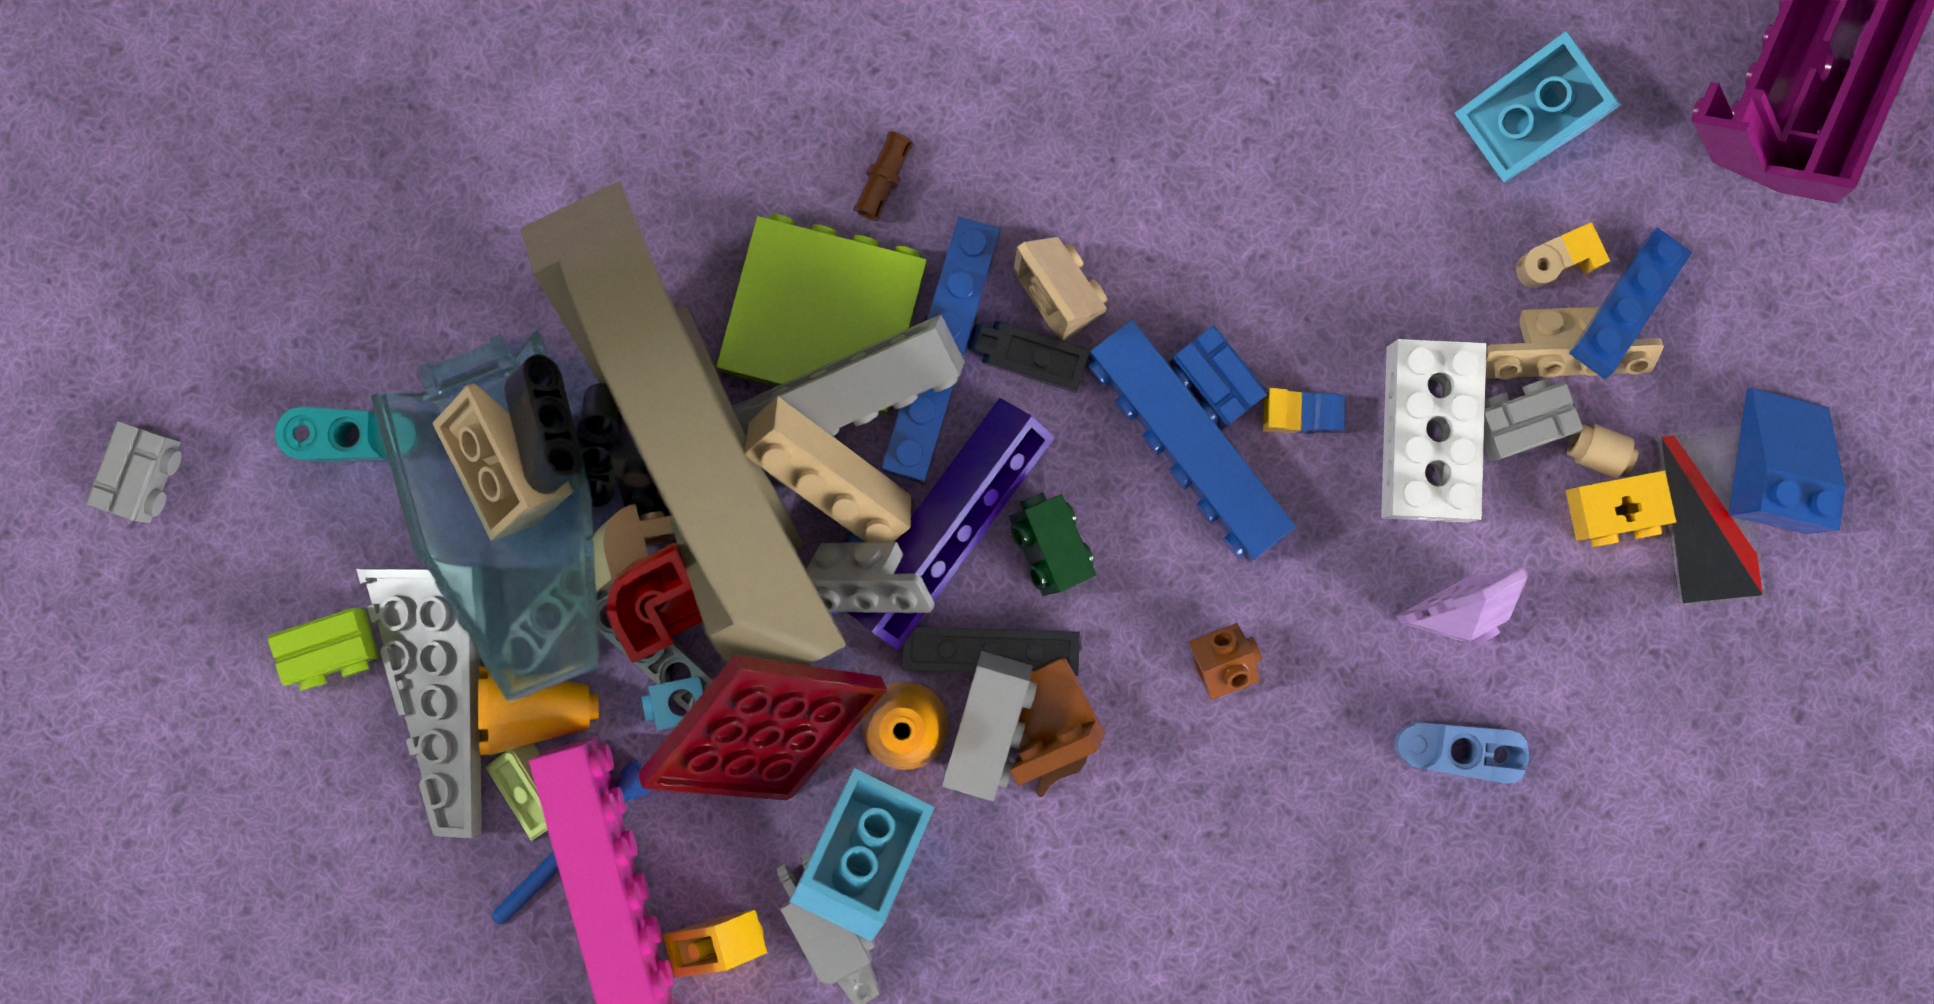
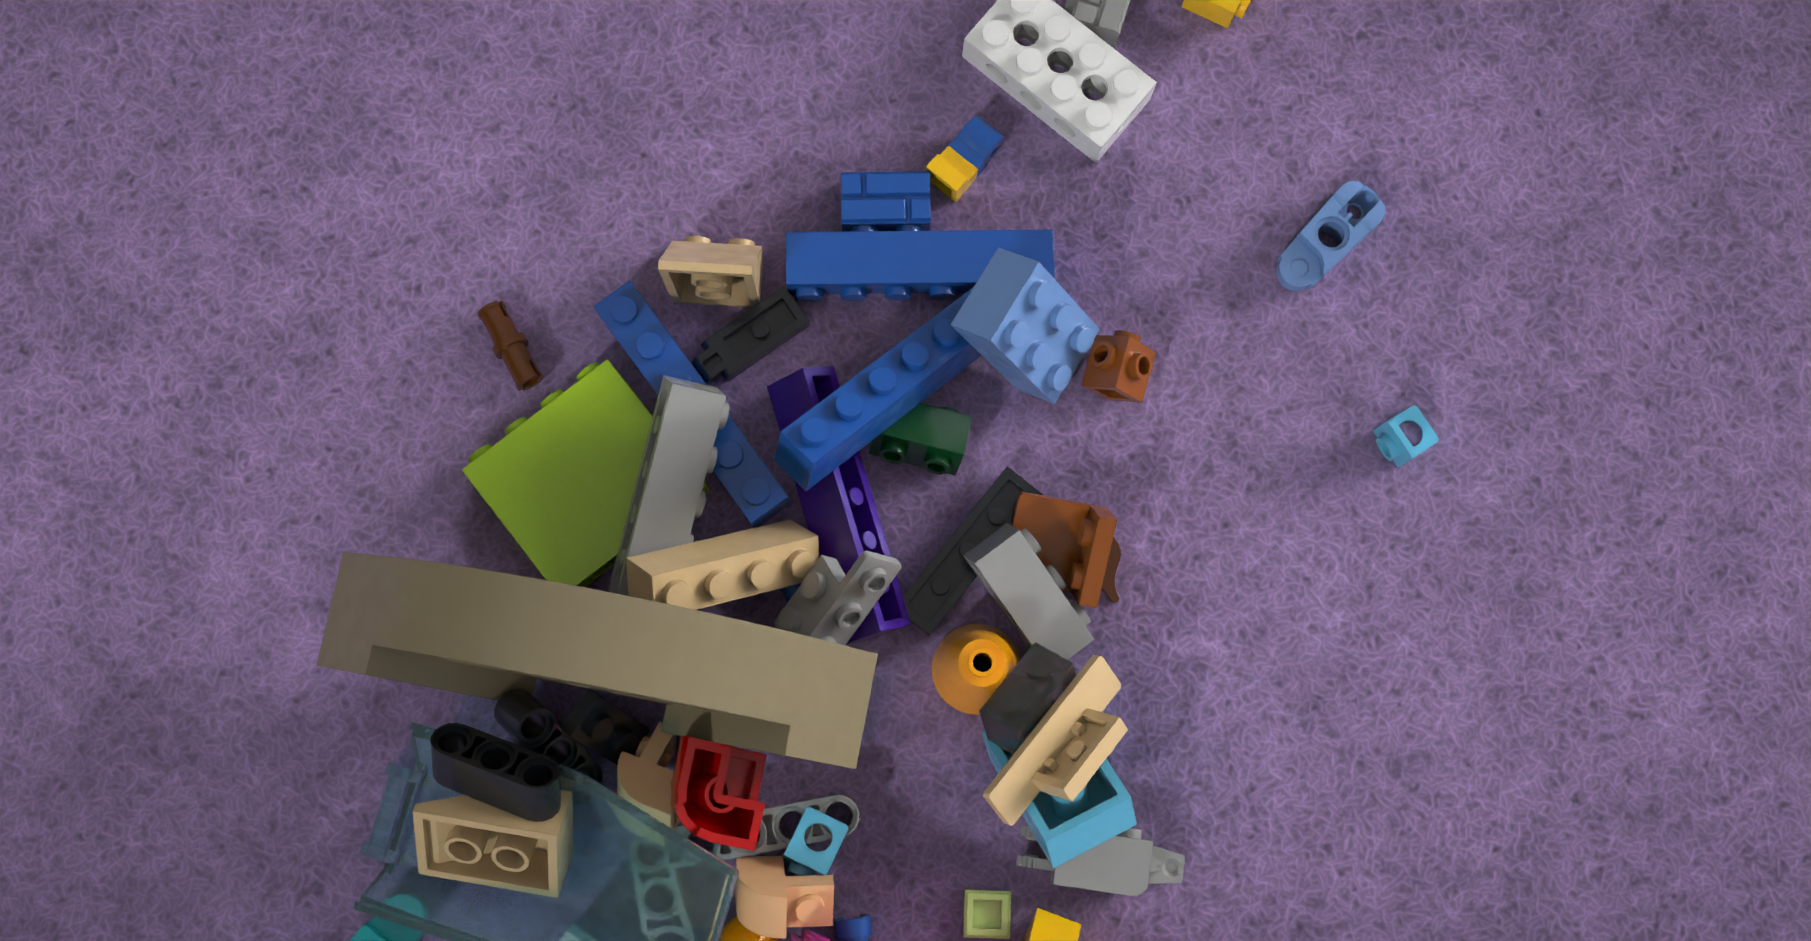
camera: 55 degrees left, 5 degrees down
(607, 705) = (772, 902): none -> light nougat brick
(724, 873) = (987, 914): none -> yellowish green tile
(761, 729) = (893, 781): dark red plate -> none
(886, 842) = (1063, 746): none -> tan bracket
(903, 788) = (1025, 697): none -> clear smoke brick
(1067, 495) = (874, 399): none -> blue brick
(1199, 564) = (1026, 325): none -> medium blue brick
(1330, 925) = (1395, 444): none -> medium azure bracket
(1469, 607) = (1219, 141): lavender wedge -> none

